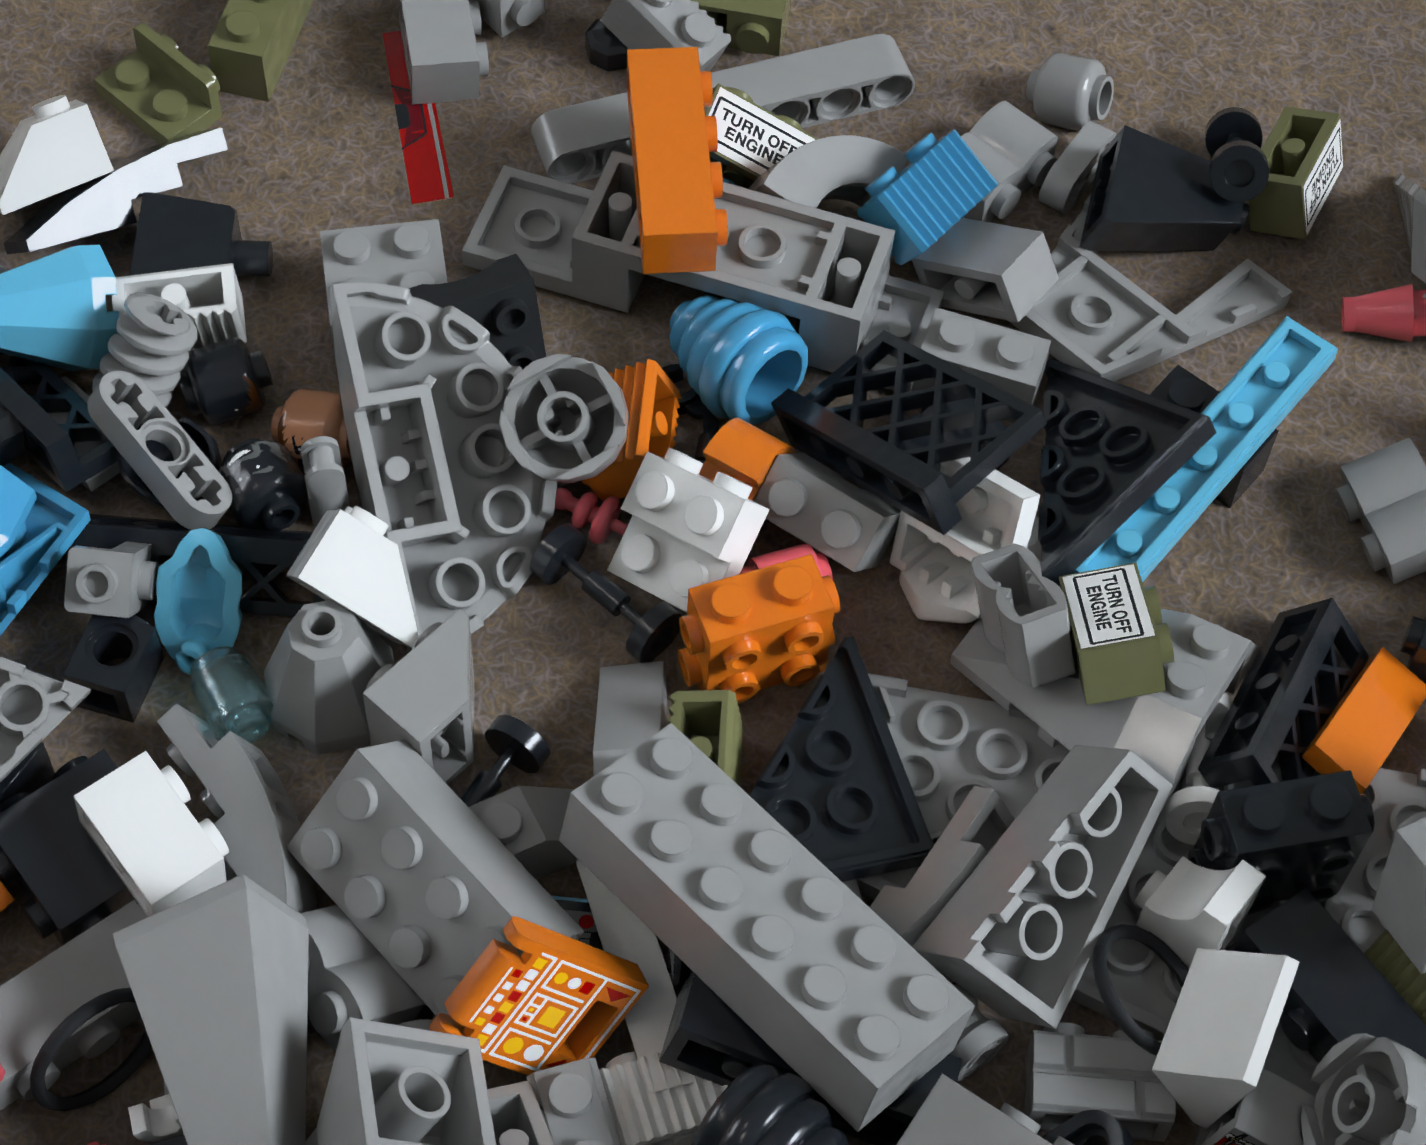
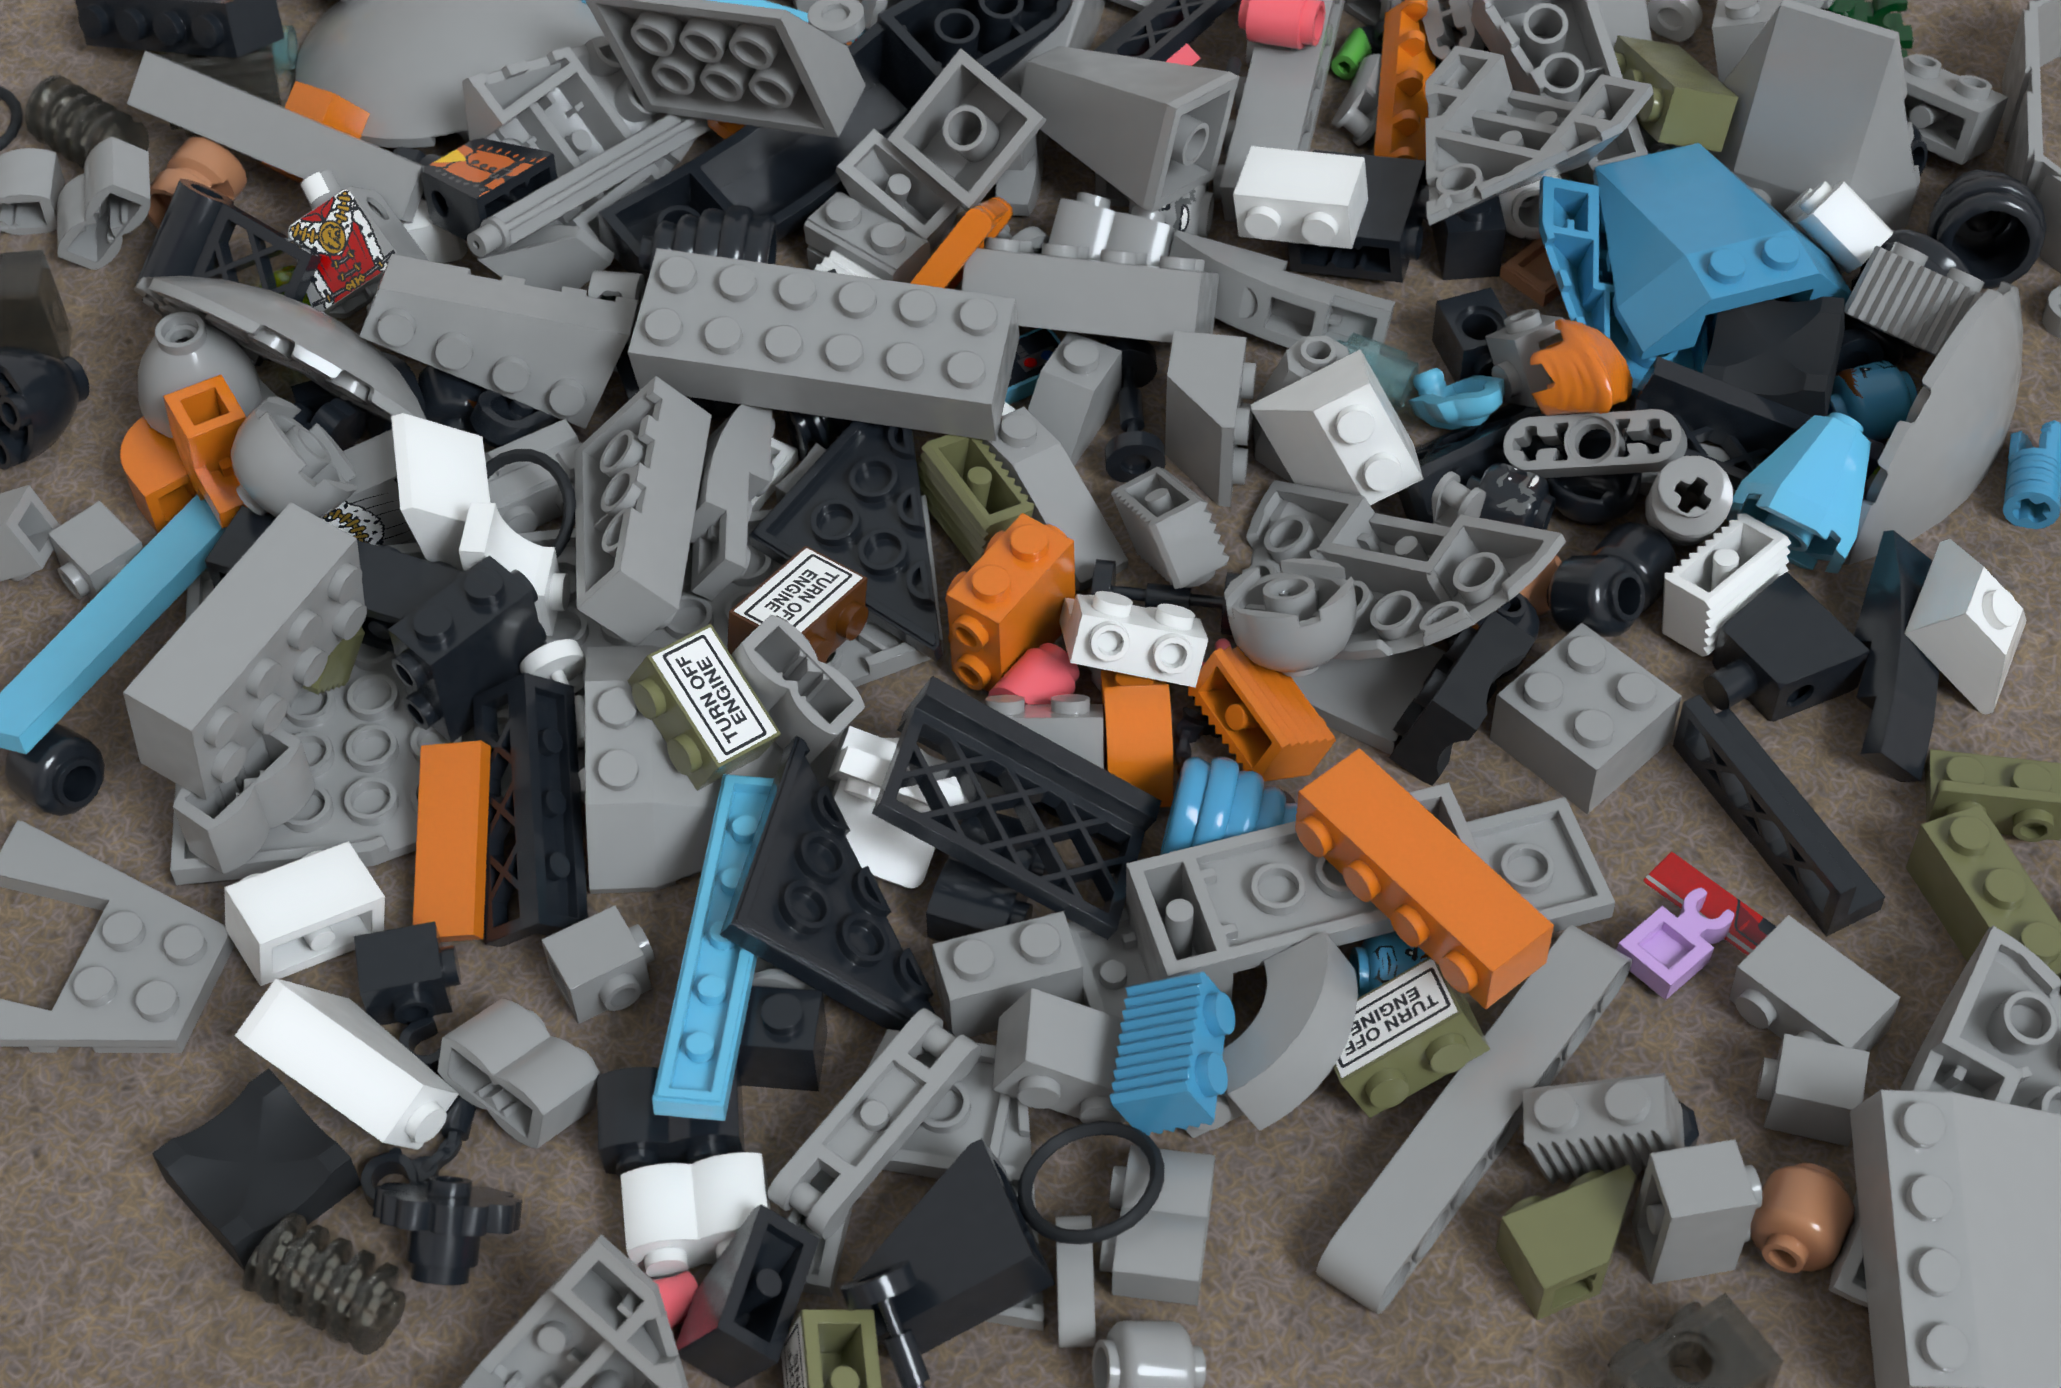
camera: 150 degrees right, 5 degrees down
(121, 483) = (1585, 372): none -> orange hair
(294, 343) = (1596, 592): none -> black head
(321, 160) = (1775, 817): none -> black fence
(492, 128) = (1673, 948): none -> lavender plate
(565, 616) = (1170, 528): none -> light grey brick
(958, 713) = (813, 596): none -> brick
(1066, 144) = (1107, 1231): none -> black tyre
(1155, 307) = (873, 1121): none -> light grey plate
(1289, 564) = (599, 964): none -> light grey brick
(1320, 433) = (637, 1138): none -> black brick
(1325, 249) = (748, 1299): none -> black slope
(1353, 335) = (689, 1211): none -> white brick

